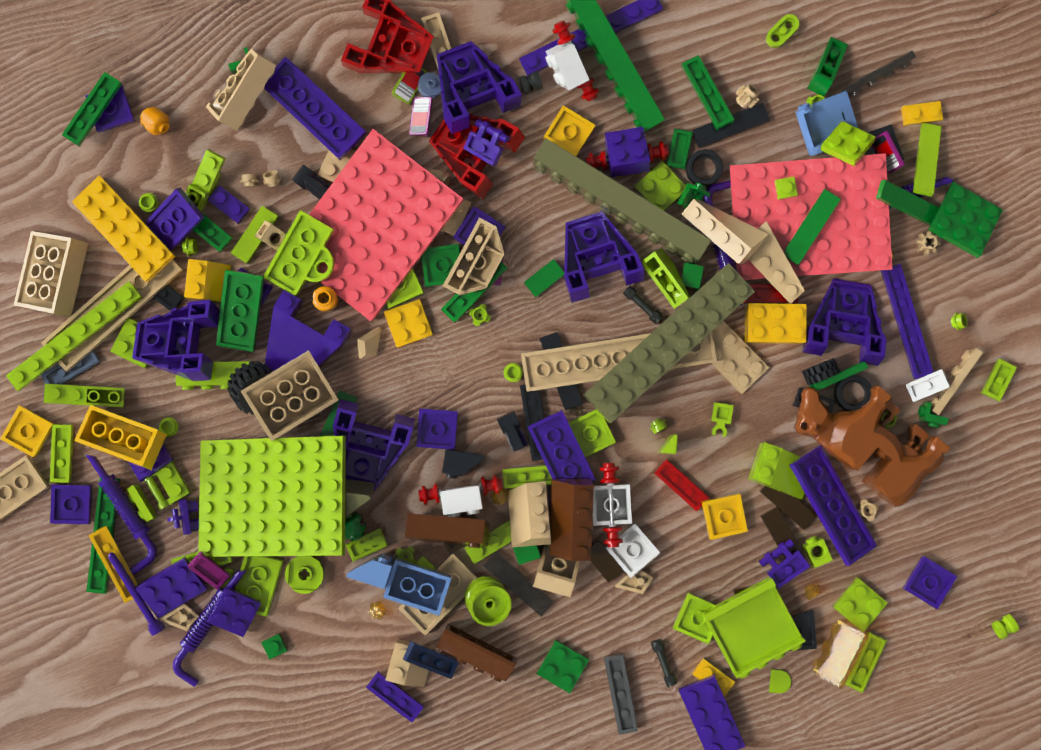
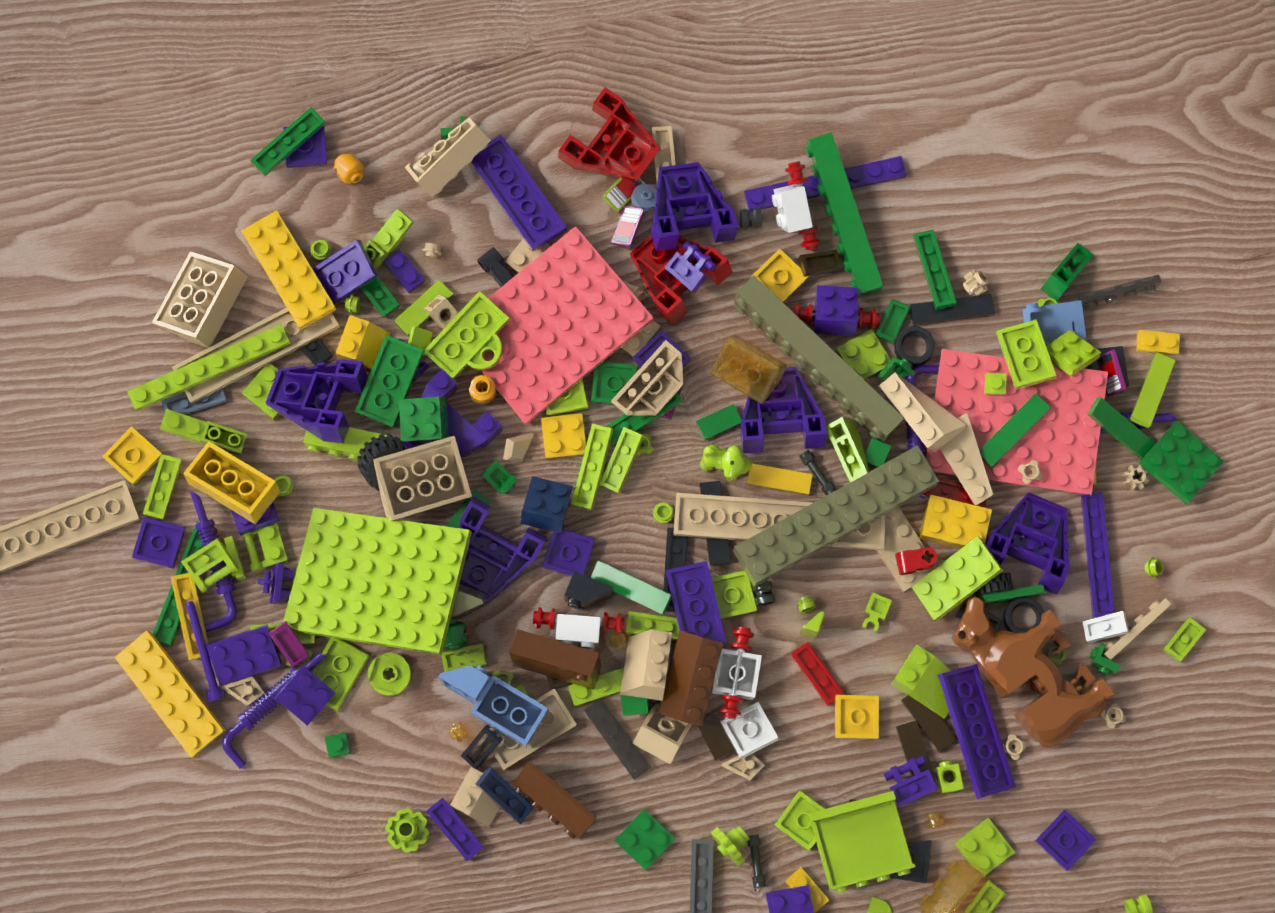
camera: 10 degrees right, 10 degrees down
(115, 512) = (207, 558): none -> lime plate
(115, 635) = (170, 693): none -> yellow plate
(257, 264) = (419, 337): none -> lime tile
(271, 178) = (456, 254): tan plate -> none
(278, 340) = (423, 418): none -> green brick
(353, 707) = (407, 830): none -> lime plant
(359, 376) = (499, 478): none -> green bracket
(407, 391) = (546, 504): none -> dark blue brick
(407, 610) = (491, 736): none -> black tile
(440, 346) = (592, 466): none -> lime plate
(465, 334) = (621, 459): none -> lime plate
(487, 601) = (587, 756): lime wheel -> none
(500, 448) = (632, 587): none -> tile
(511, 428) = (648, 569): black piece -> none
(559, 224) = (748, 368): none -> clear yellow slope
(563, 315) = (731, 461): none -> lime animal
(603, 110) = (820, 263): none -> dark brown tile
(609, 318) = (779, 479): none -> yellow tile
(624, 428) = (764, 593): none -> pearl dark grey wheel
(639, 655) = (731, 843): none -> lime plant
(744, 367) = (911, 560): none -> red piece
(781, 31) = (1026, 226): lime plate -> none
(788, 374) = (957, 578): none -> lime plate
(808, 154) = (1026, 354): none -> lime plate
(833, 267) = (1033, 466): none -> tan plate
(955, 462) = (1119, 716): none -> tan plate

